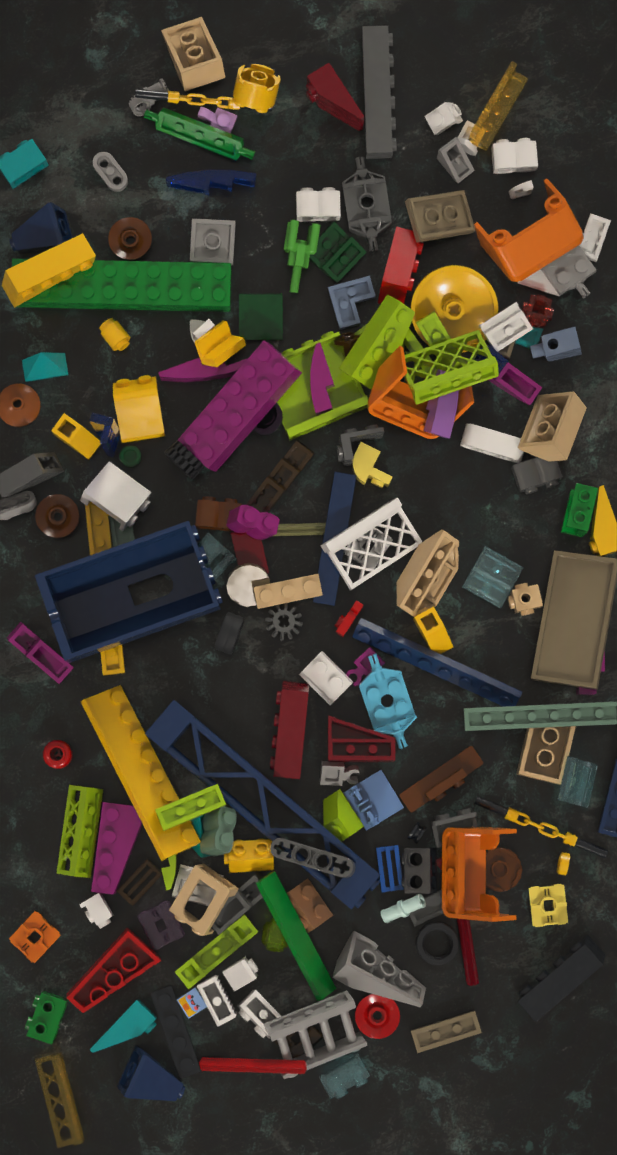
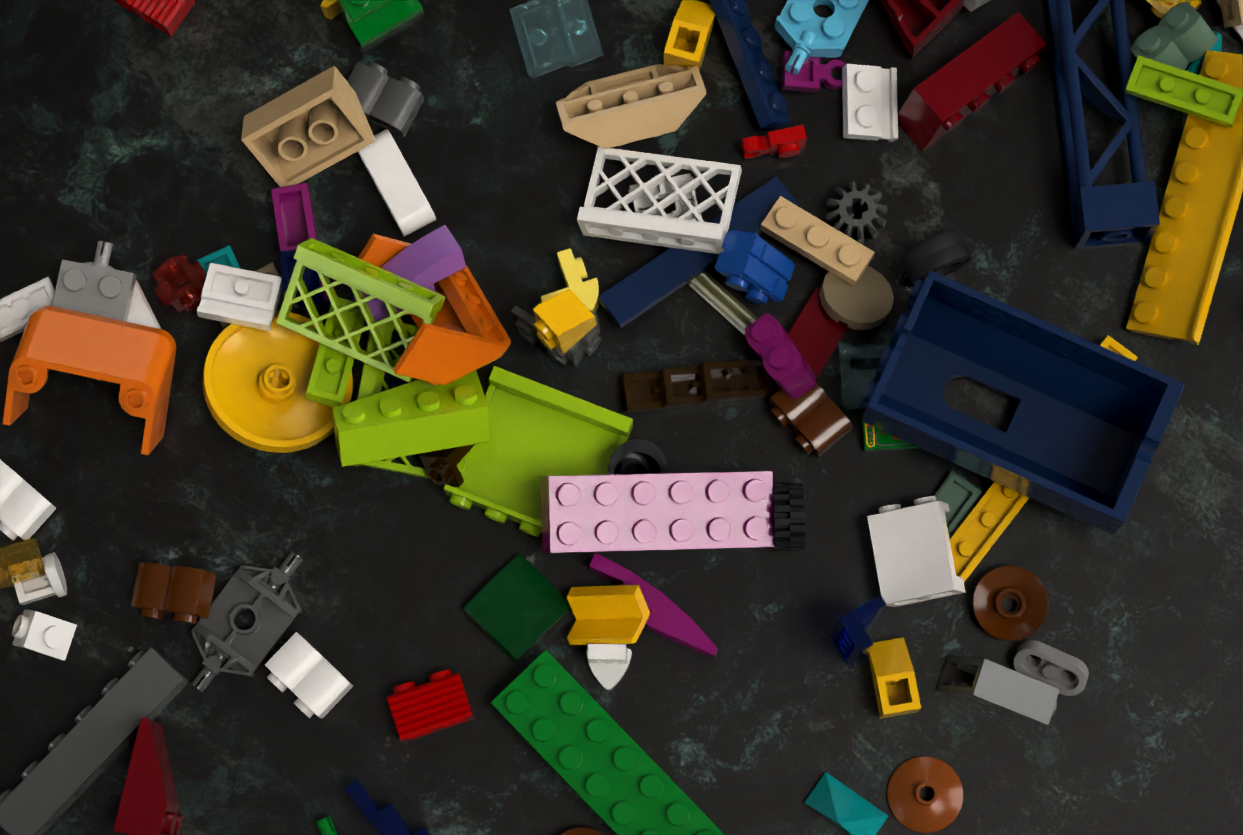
camera: 130 degrees left, 5 degrees down
(39, 652) = (1191, 462): magenta slope -> none
(114, 334) = (720, 761): yellow brick -> none
(130, 456) = (847, 592): dark green tile -> none
(138, 409) = (780, 640): yellow piece -> none
(212, 241) = (483, 760): light grey plate -> none
(256, 241) = (429, 706): none -> red brick
(299, 250) = (387, 640): bright green plant -> none
(301, 551) = (754, 267): none -> blue brick
(320, 381) = (527, 451): magenta slope -> none
(336, 252) = (346, 599): dark green slope -> none
(344, 298) = (393, 529): sand blue plate -> none
(354, 438) = (563, 321): none -> yellow slope
(400, 265) = (286, 497): red wedge -> none
(408, 183) = (173, 591): none -> reddish brown brick
(440, 216) = (176, 512): dark tan tile -> none
(455, 160) = (86, 565): light grey slope -> none
(521, 190) = (42, 449): white tile -> none
(567, 344) = (189, 206): sand blue torso -> none

